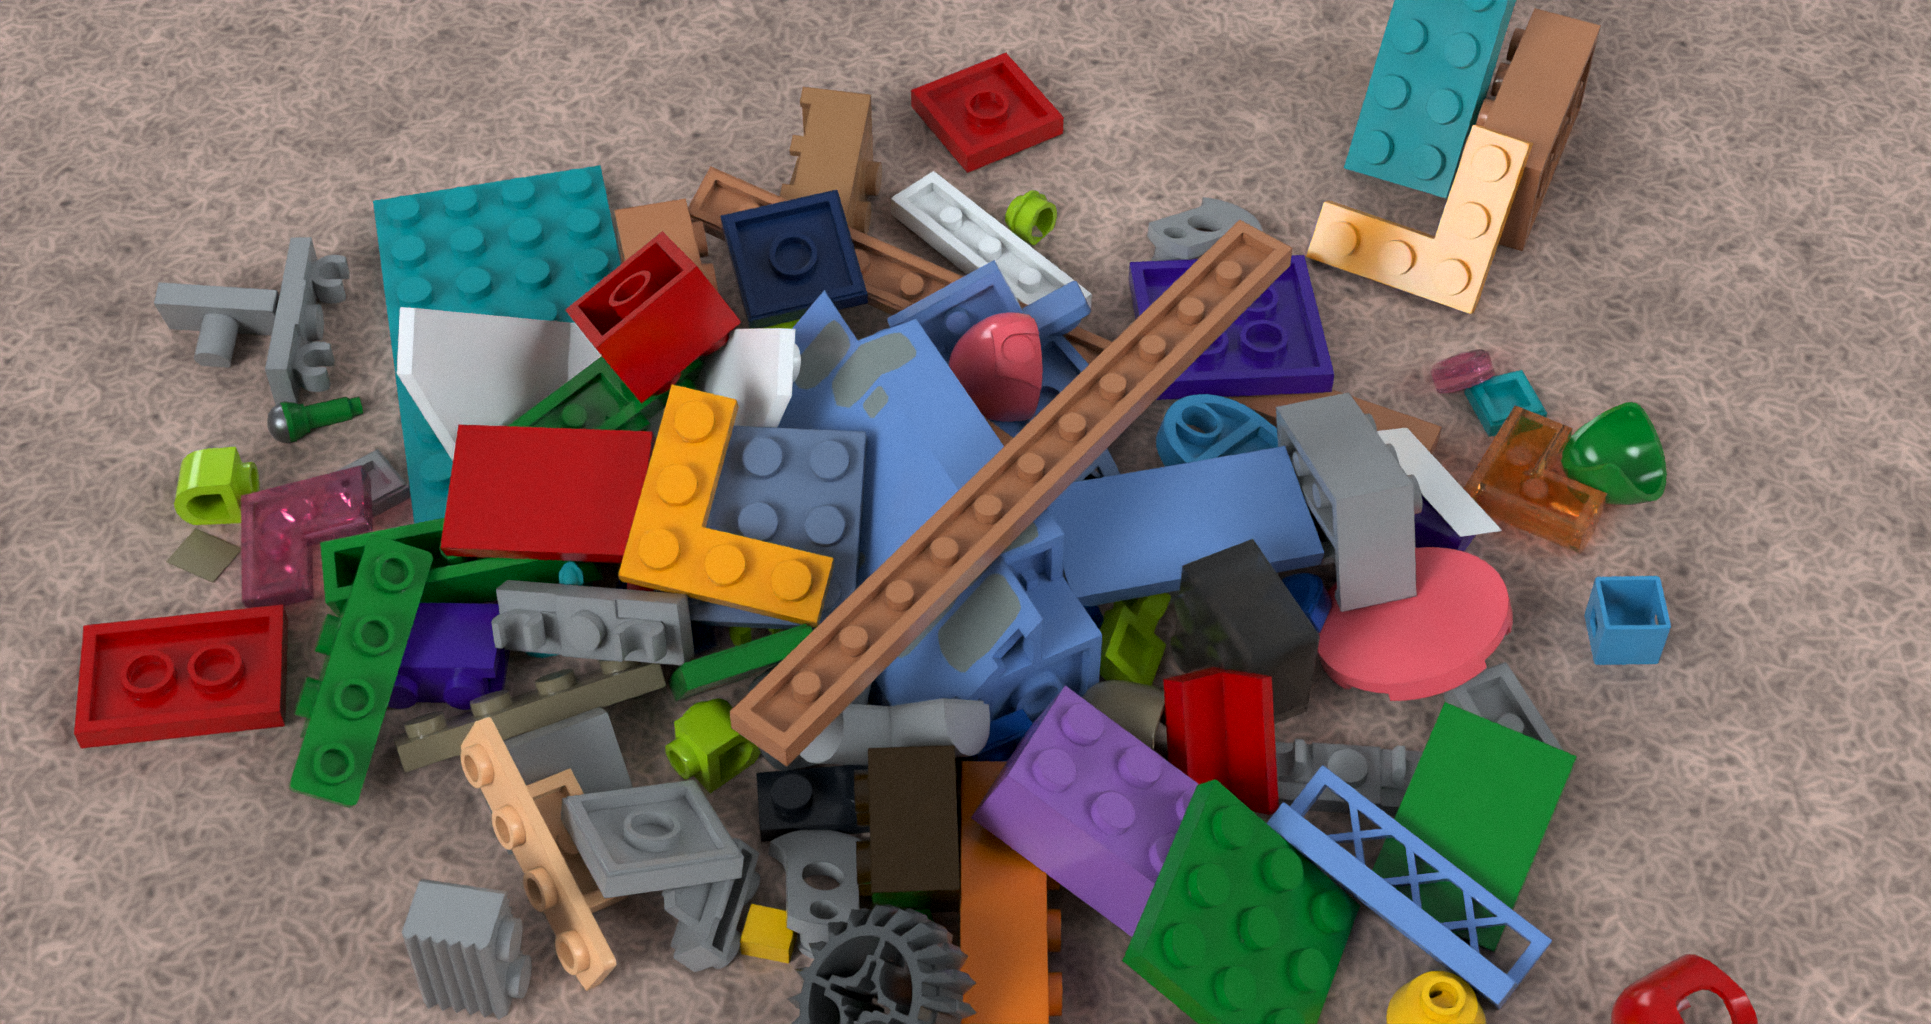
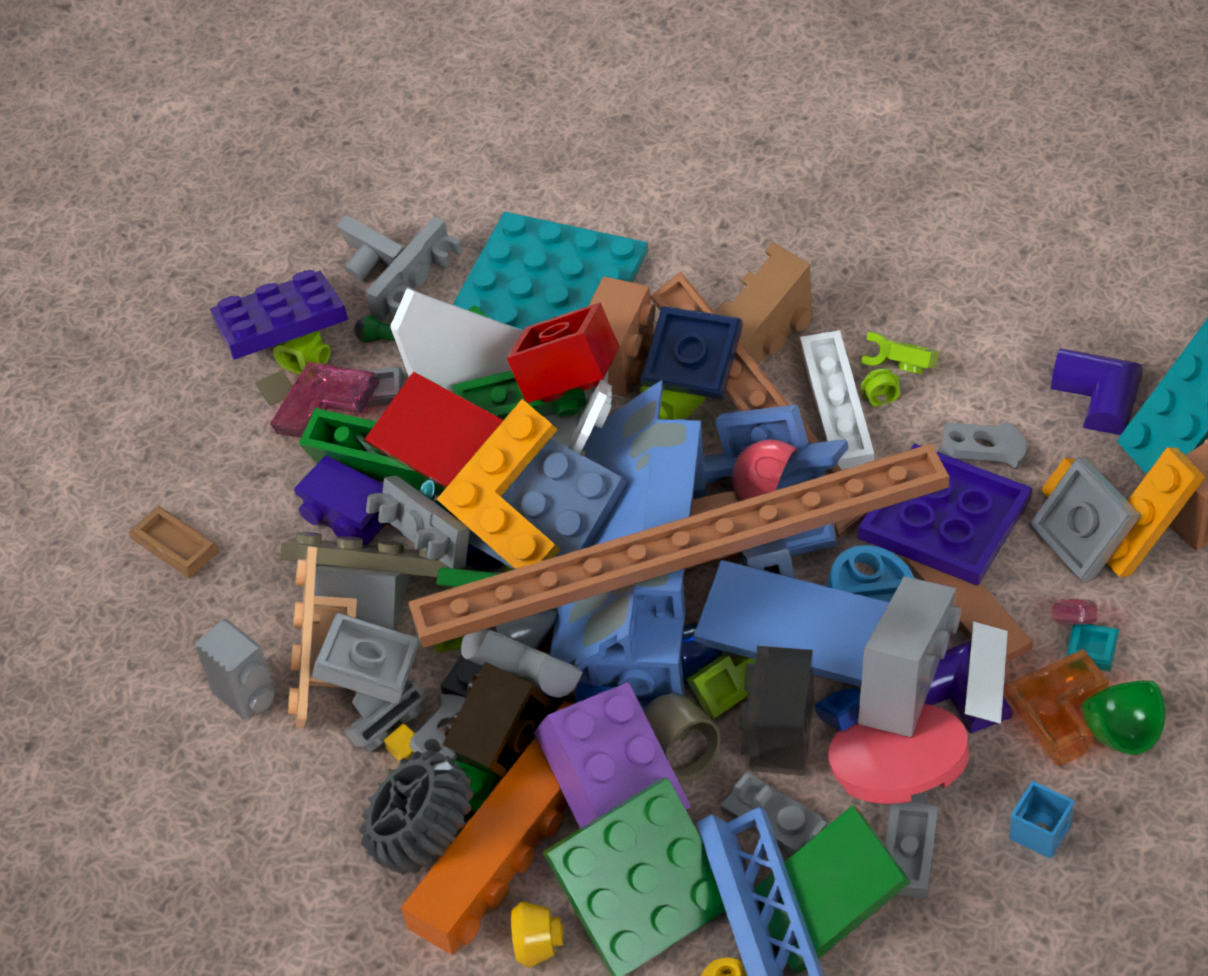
camera: 40 degrees right, 0 degrees up
(149, 451) = (278, 313): none -> dark purple plate
(182, 676) = (215, 452): red plate -> none
(206, 827) = (174, 541): none -> medium nougat tile
(358, 672) = (289, 491): green bracket -> none
(987, 112) = (909, 303): red plate -> none
(1040, 170) = (911, 357): none -> lime plate
(1225, 732) = (713, 760): red panel -> none
(1281, 107) = (1106, 380): none -> dark purple brick
(1399, 261) = (1084, 519): none -> light grey tile

